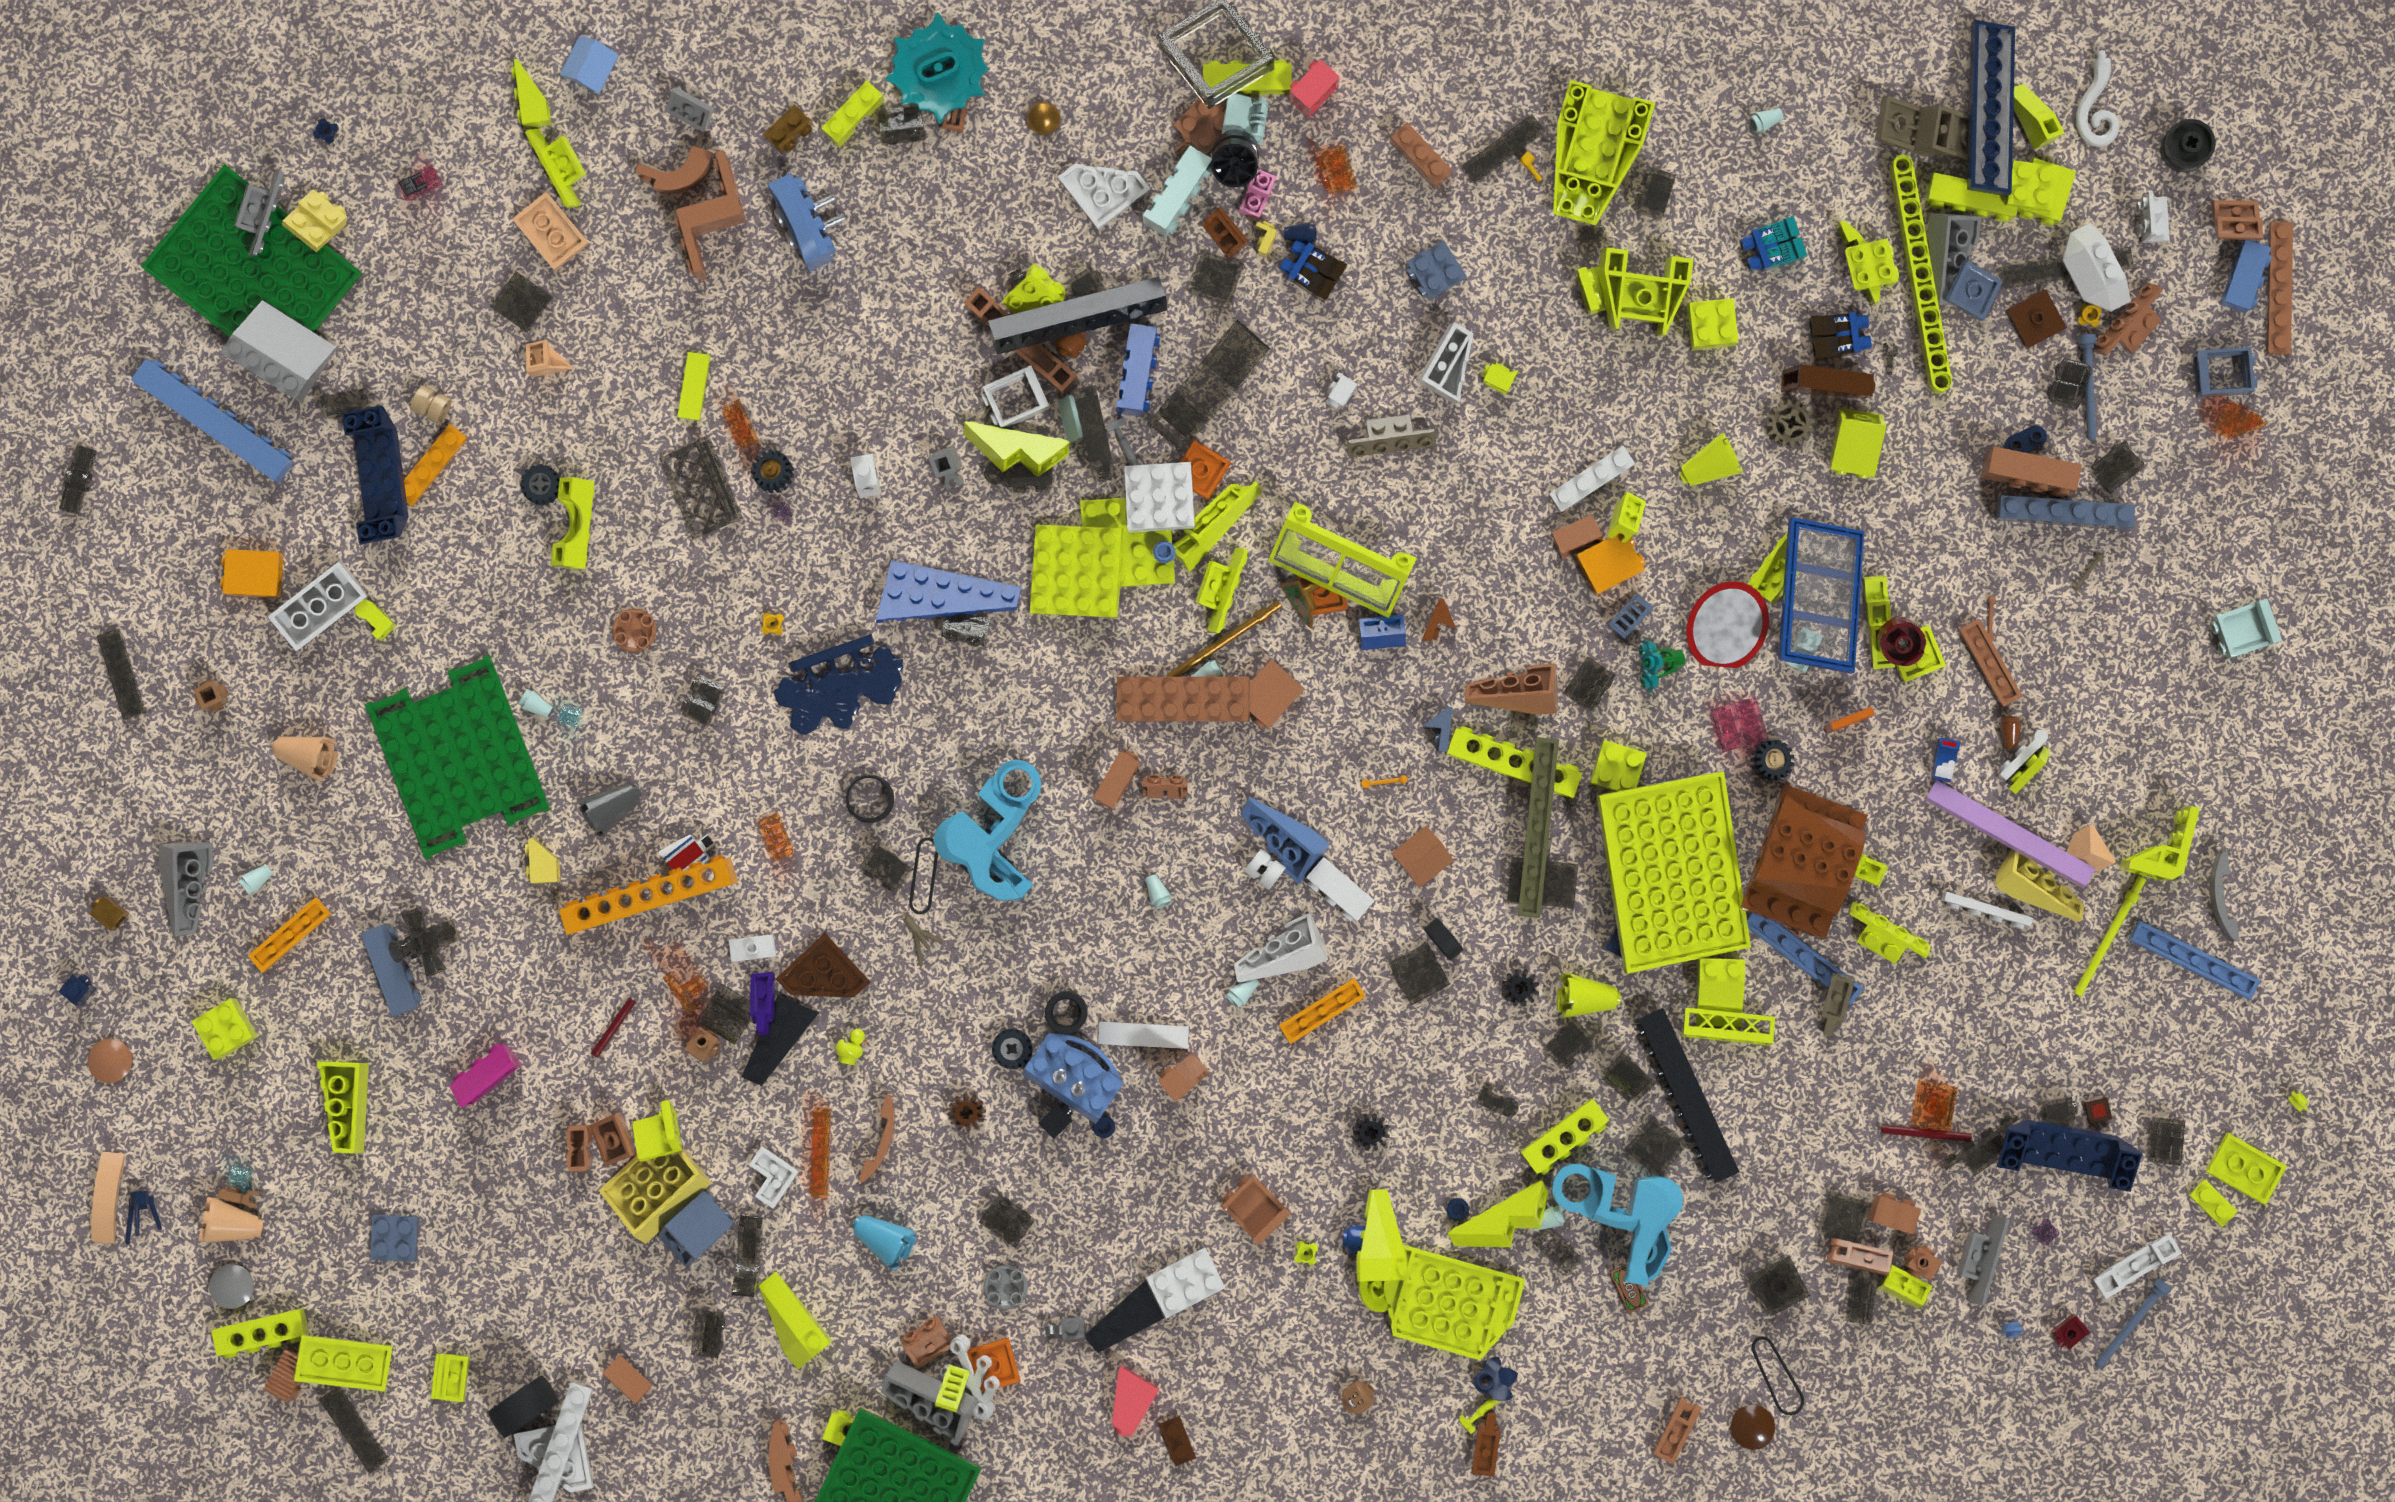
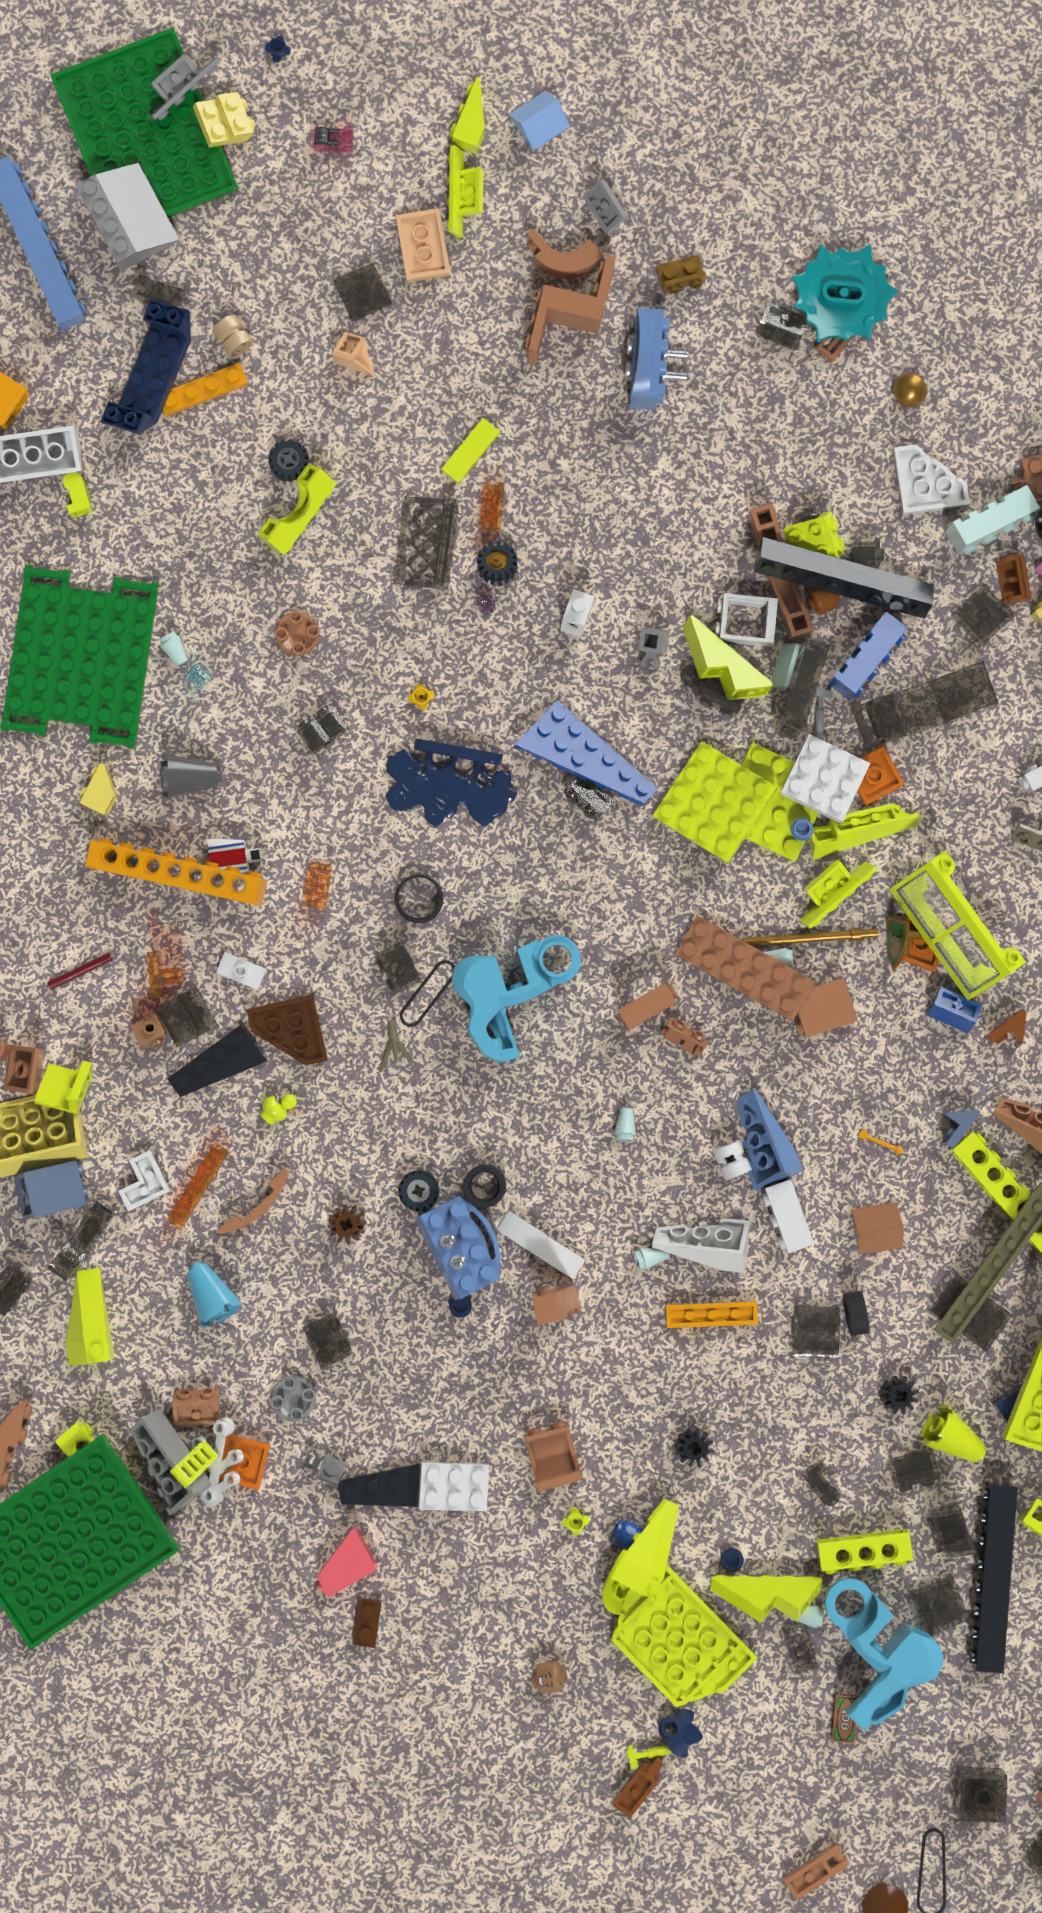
camera: 20 degrees right, 0 degrees up
(762, 1001) = (223, 1023): dark purple hinge -> none
(858, 106) = (759, 287): neon yellow arch -> none
(1056, 1120) = (422, 1277): black brick -> none

